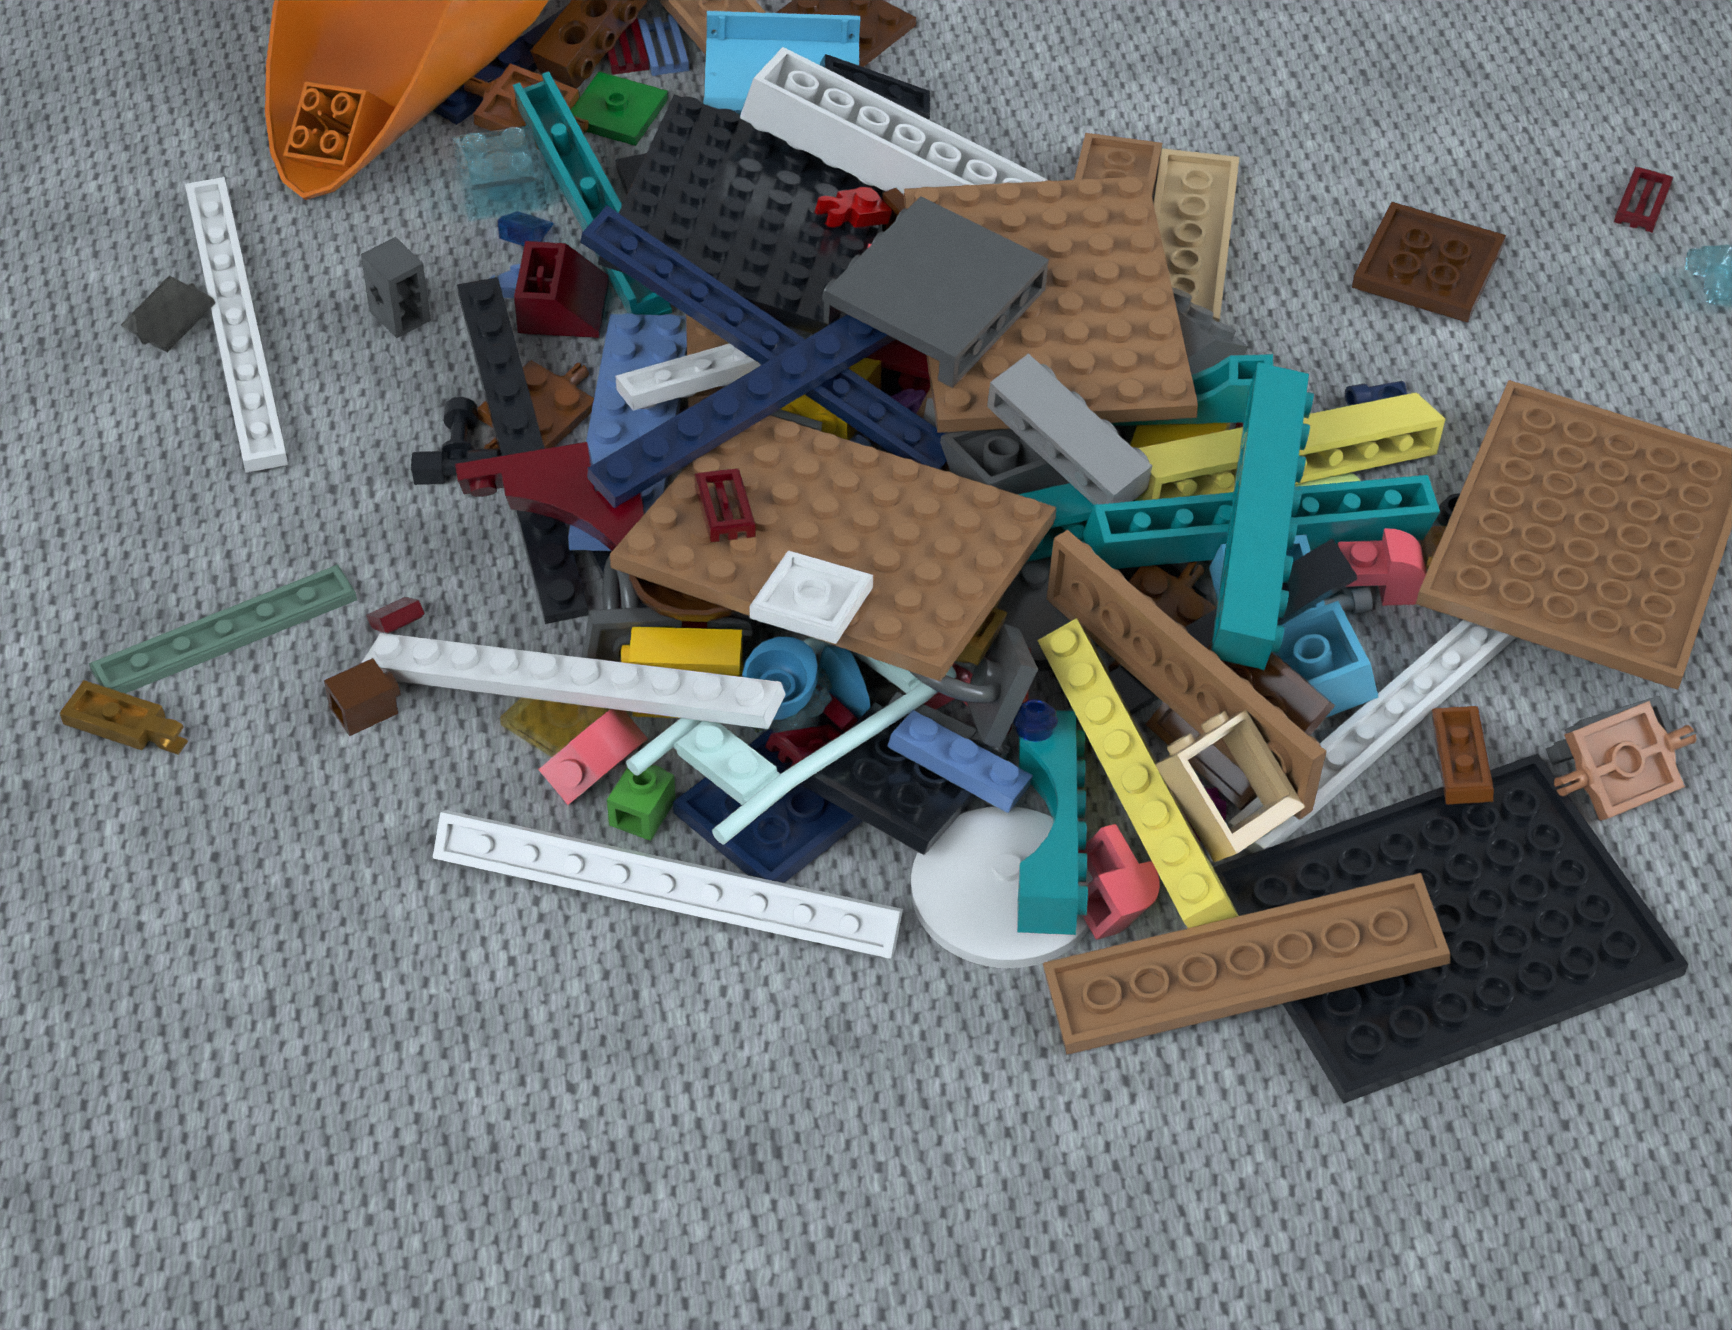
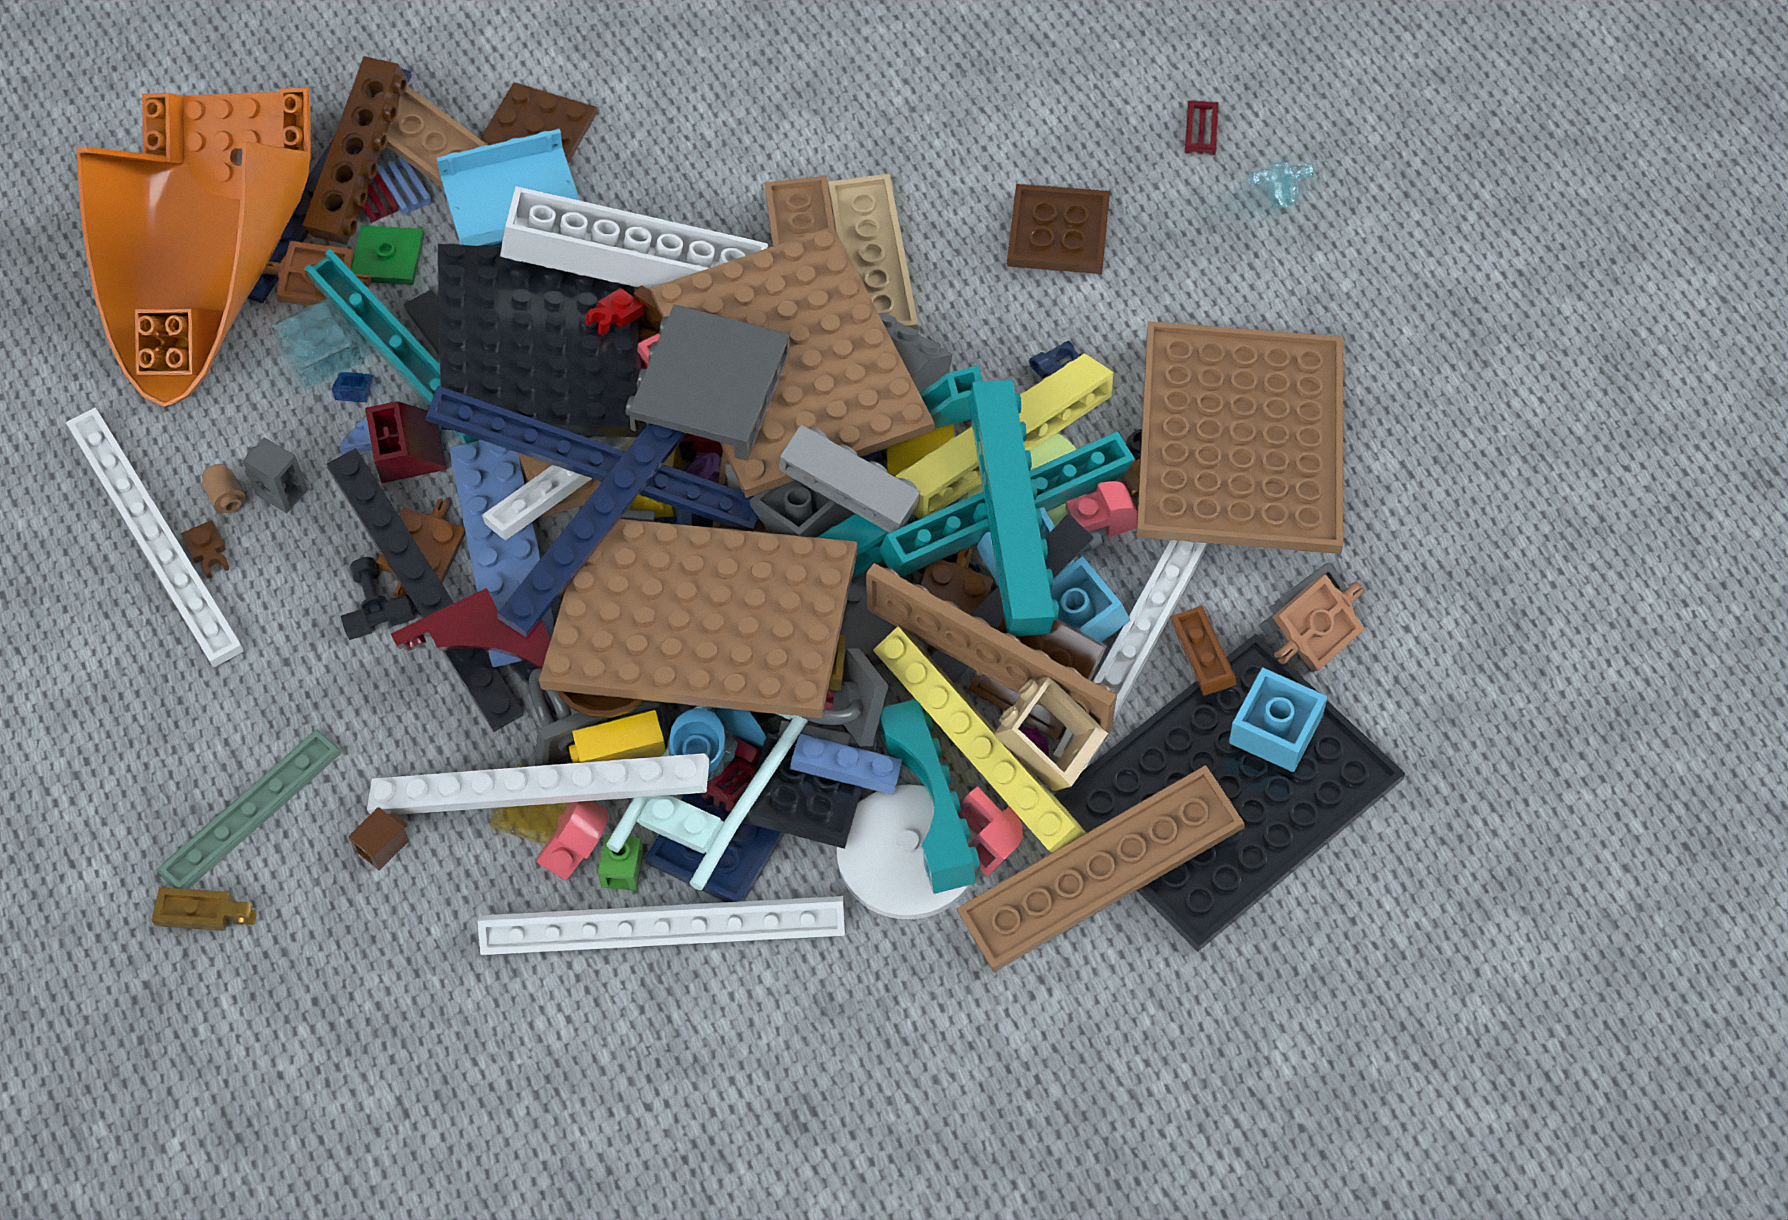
camera: 15 degrees left, 10 degrees up
(168, 313) = (97, 544): clear smoke piece -> none
(289, 347) = (206, 544): none -> reddish brown plate
(332, 292) = (222, 488): none -> medium nougat brick
(395, 615) = (378, 760): dark red tile -> none
(728, 525) = (622, 633): dark red tile -> none
(811, 597) = (706, 679): white tile -> none
(900, 92) = (591, 187): black tile -> none
(1035, 720) = (893, 724): clear blue plate -> none
(1534, 849) = (1277, 719): none -> medium azure brick

